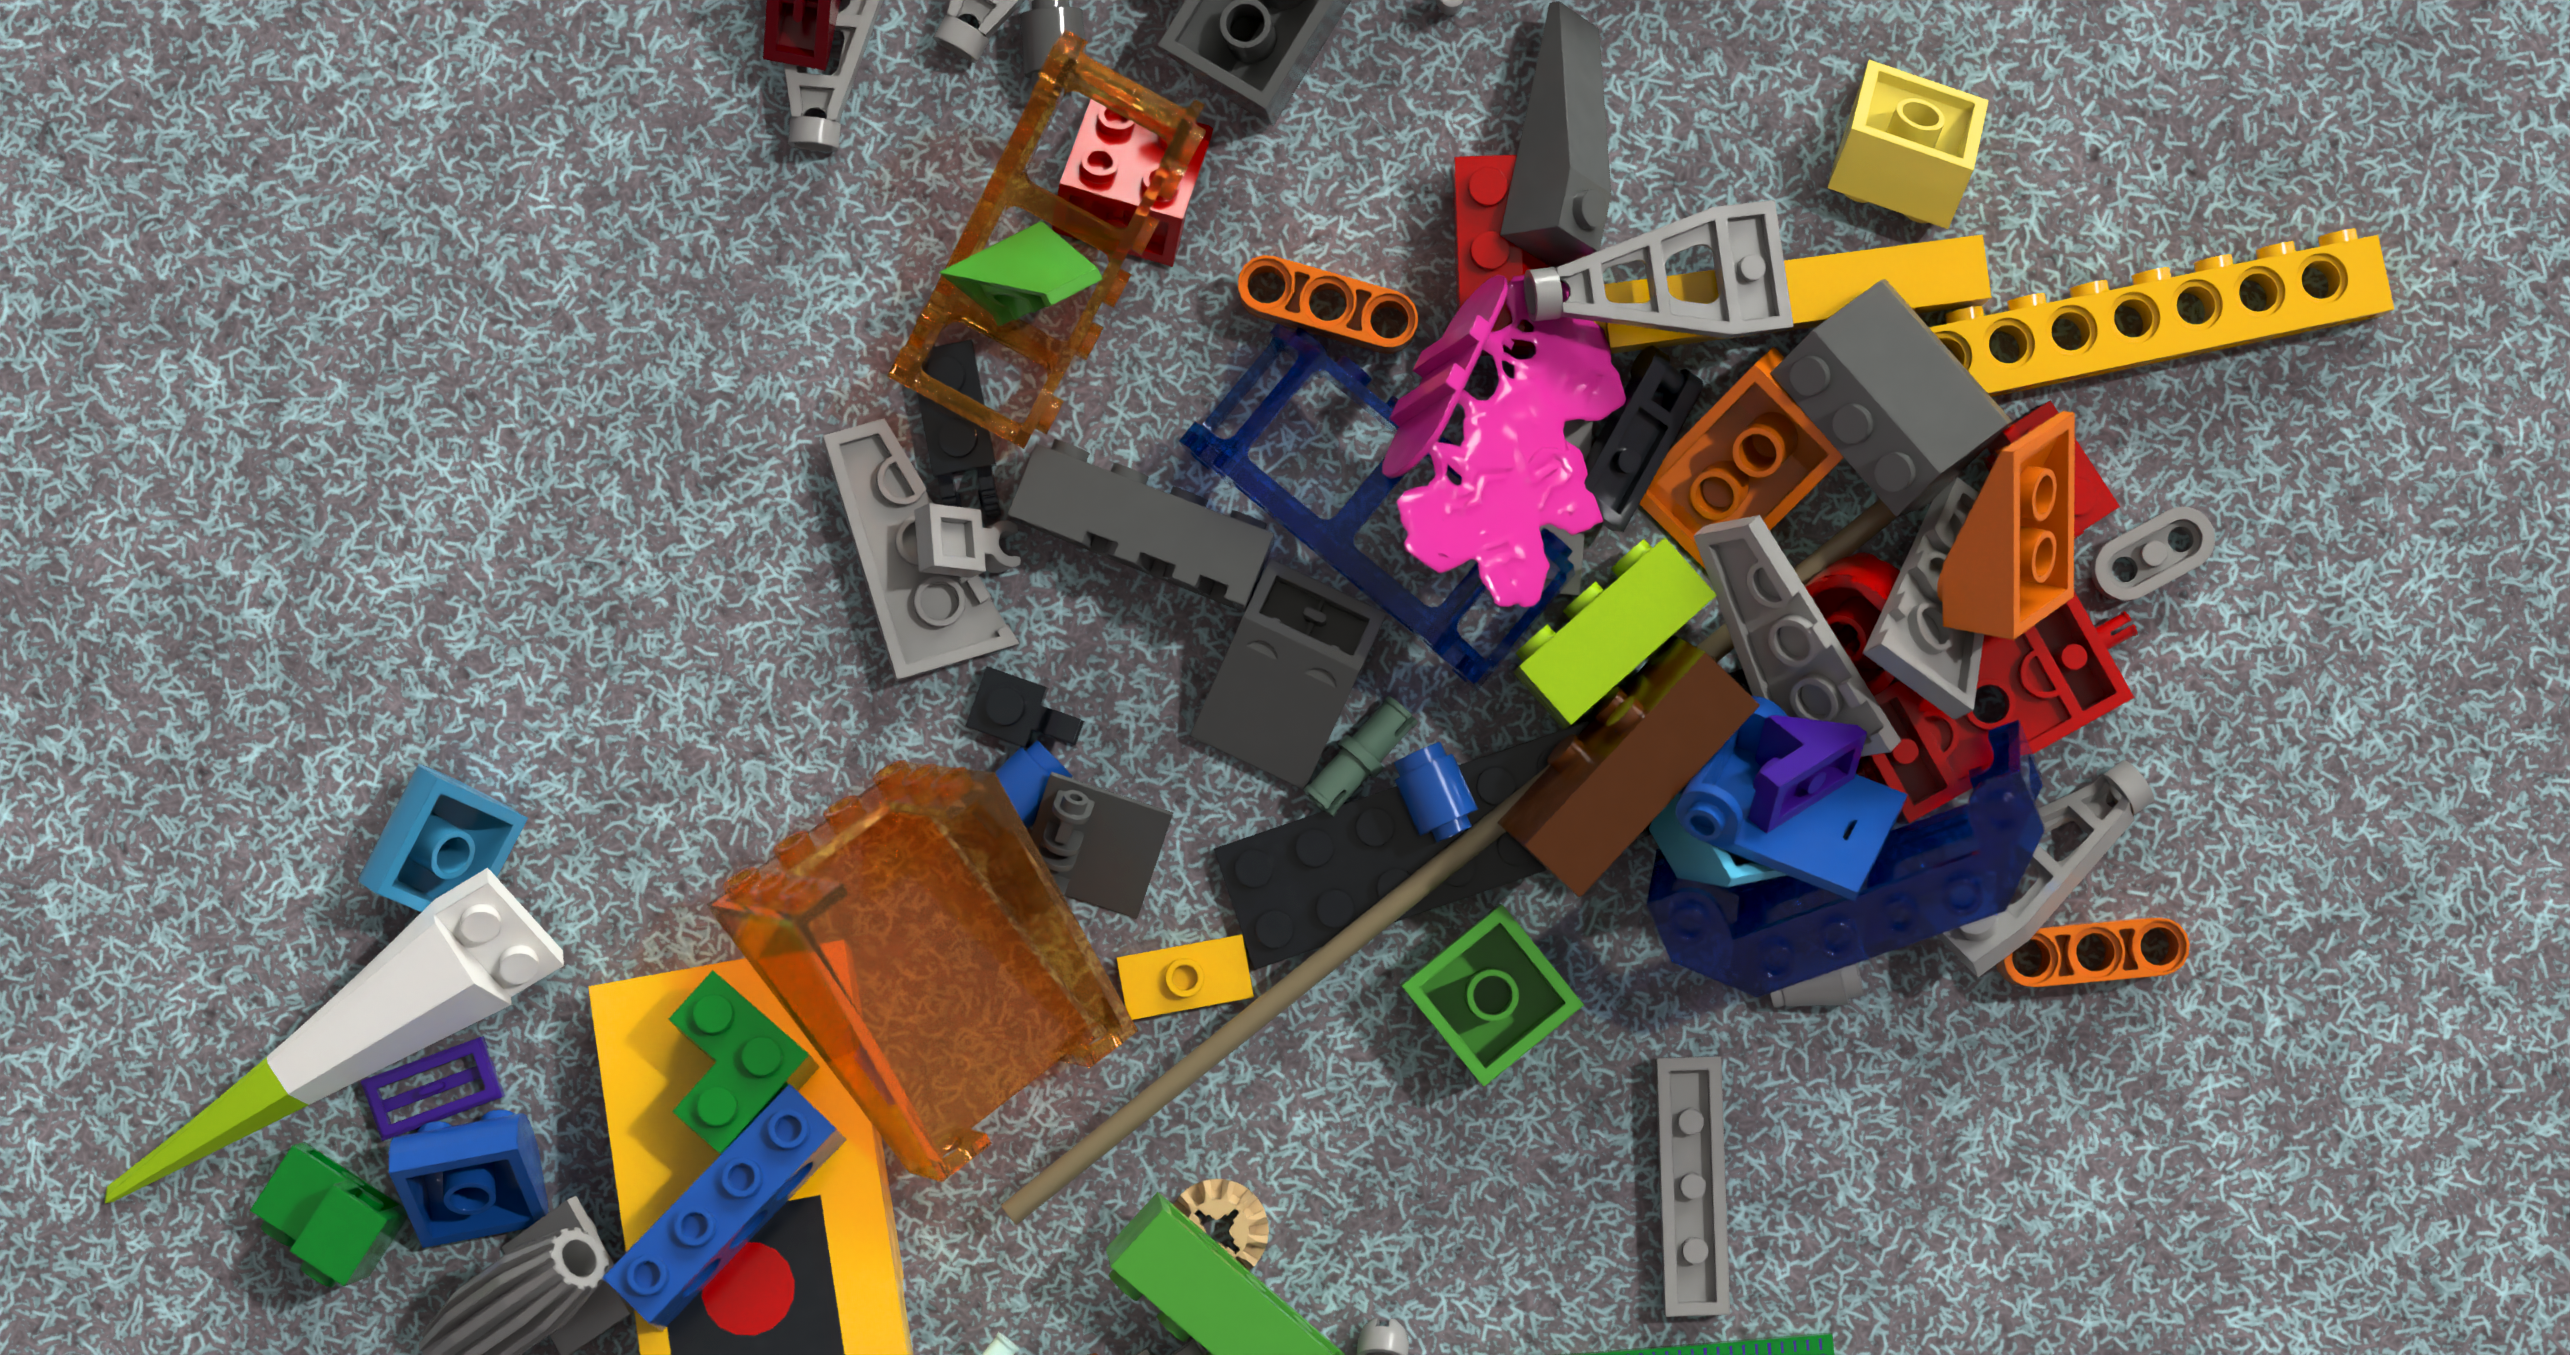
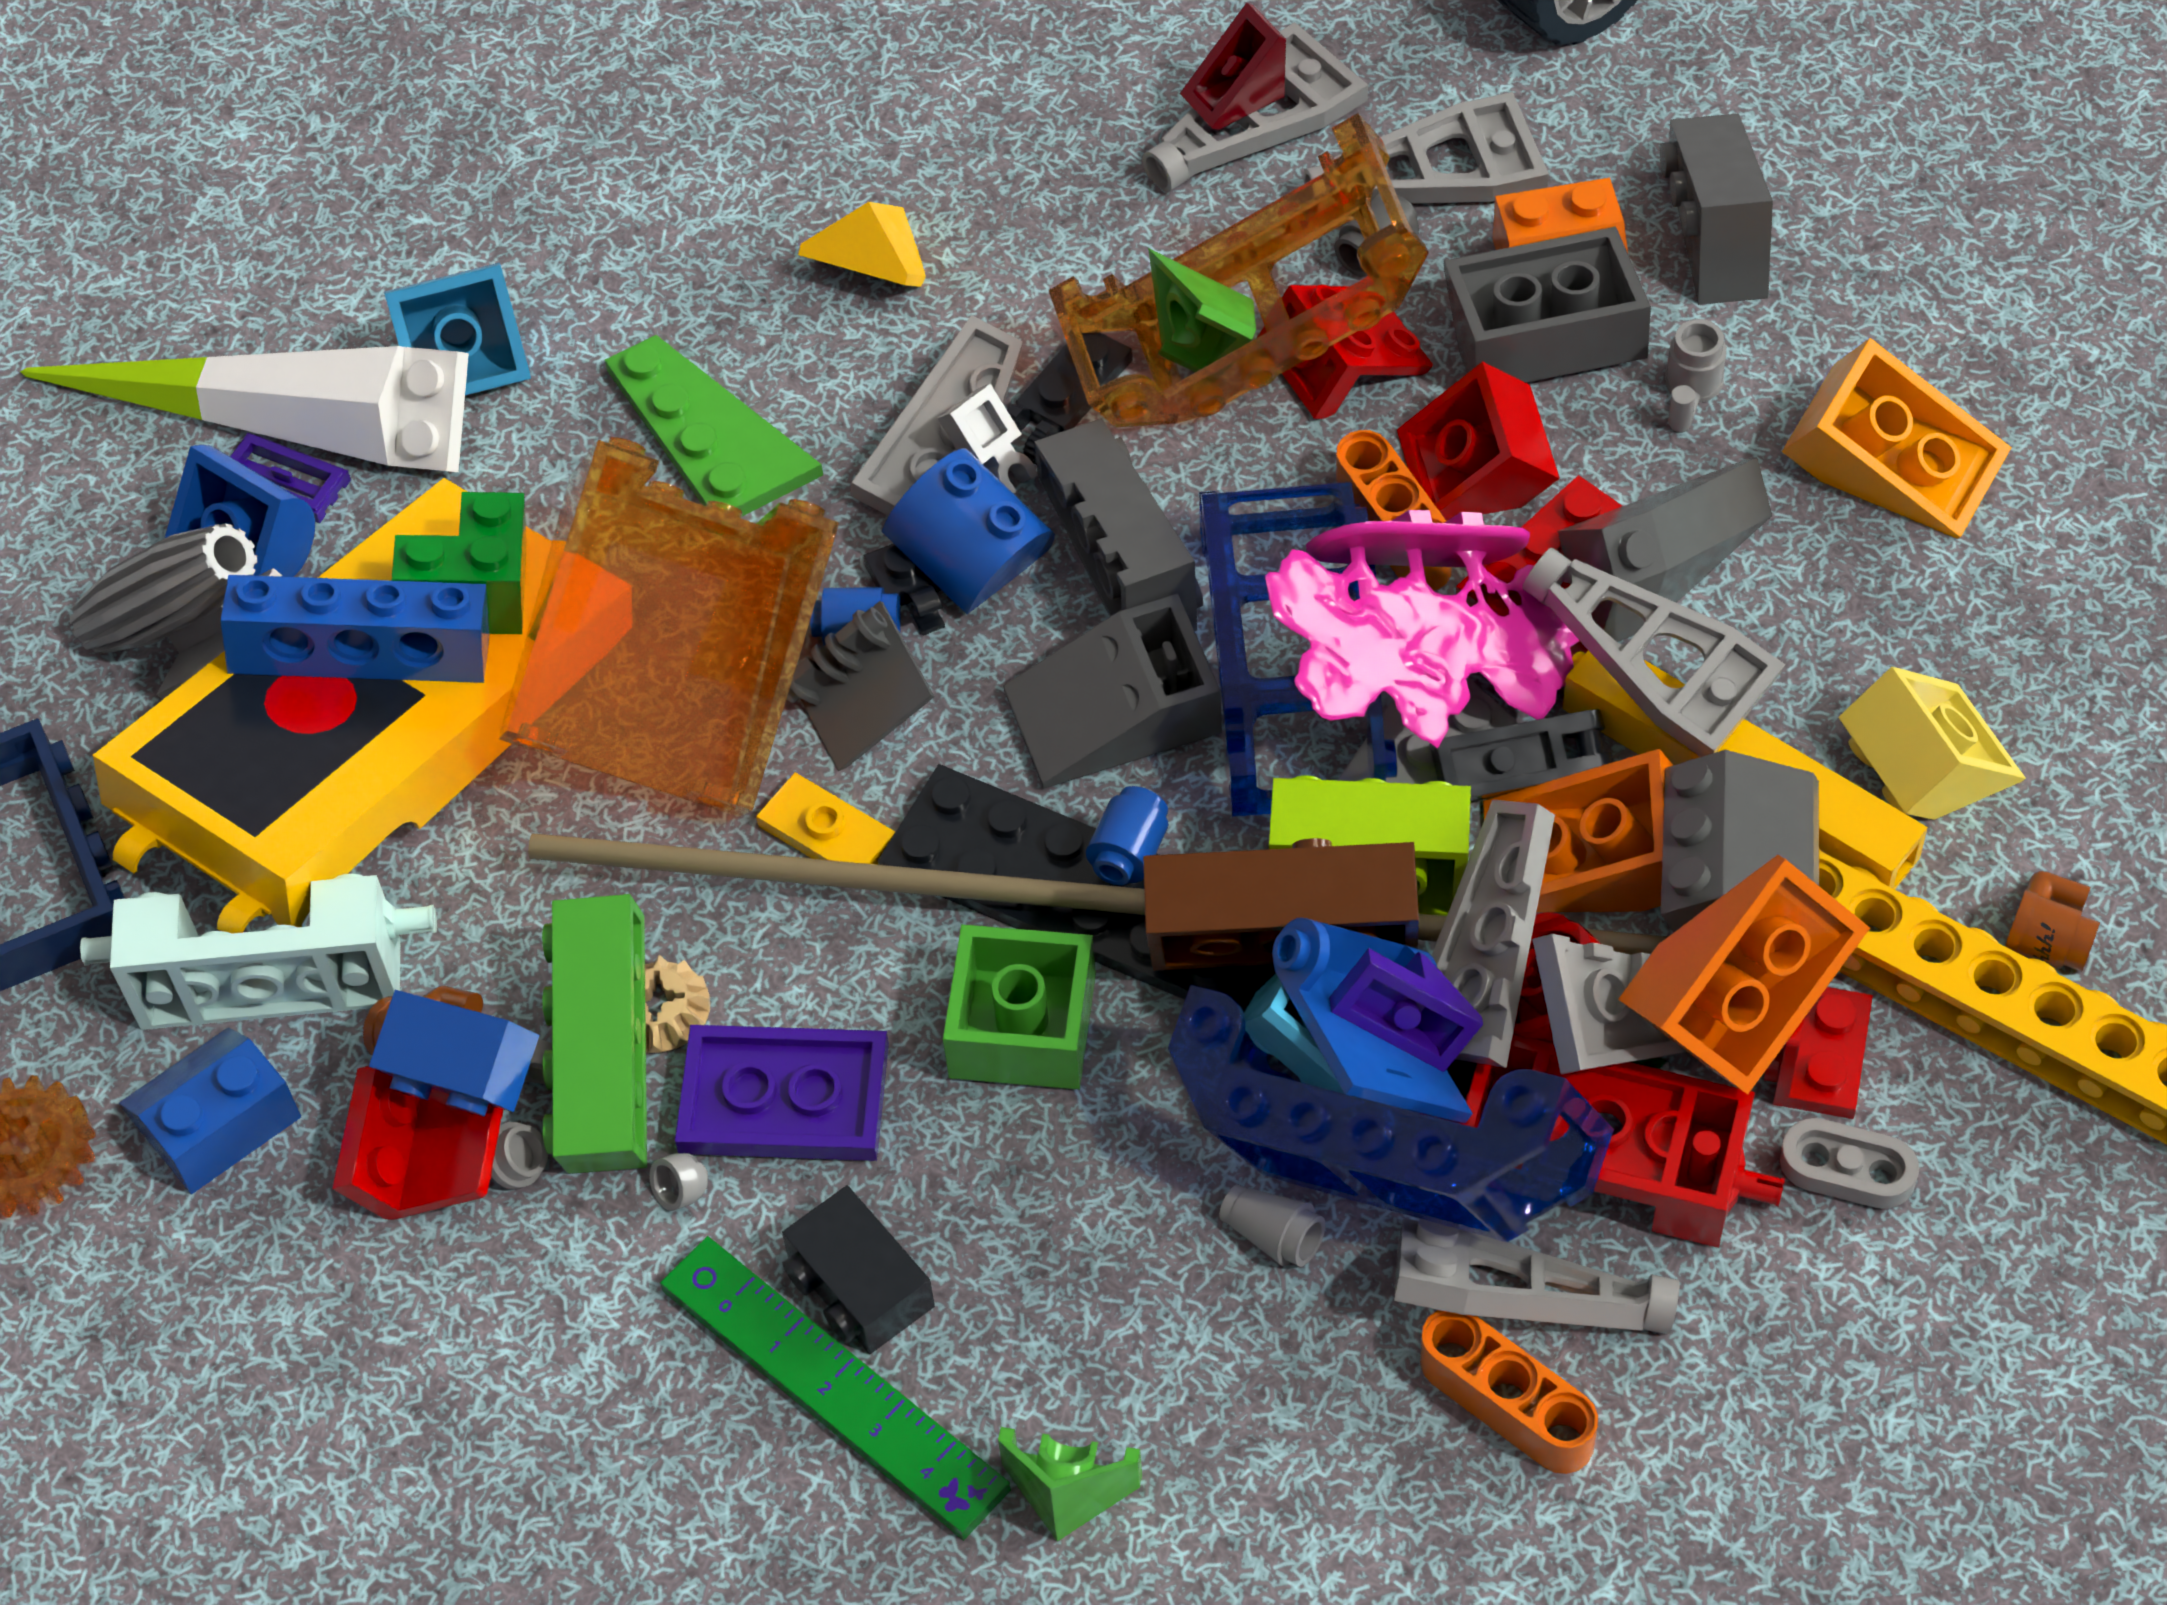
camera: 50 degrees right, 30 degrees down
(328, 1216) = (127, 478): green brick -> none
(666, 441) = (871, 242): none -> yellow slope
(732, 731) = (708, 432): none -> bright green wing
(1037, 637) = (966, 530): none -> blue brick
(1334, 186) = (1480, 445): none -> red slope
(1360, 756) = (1094, 792): sand green pin -> none
(1383, 1212) = (782, 1092): none -> dark purple plate
(1580, 1294) = (856, 1270): none -> black brick
(1692, 1186) = (1020, 1280): light grey plate -> none
(1874, 1299) = (1065, 1482): none -> bright green slope
(2125, 228) = (2051, 922): none -> dark orange piece

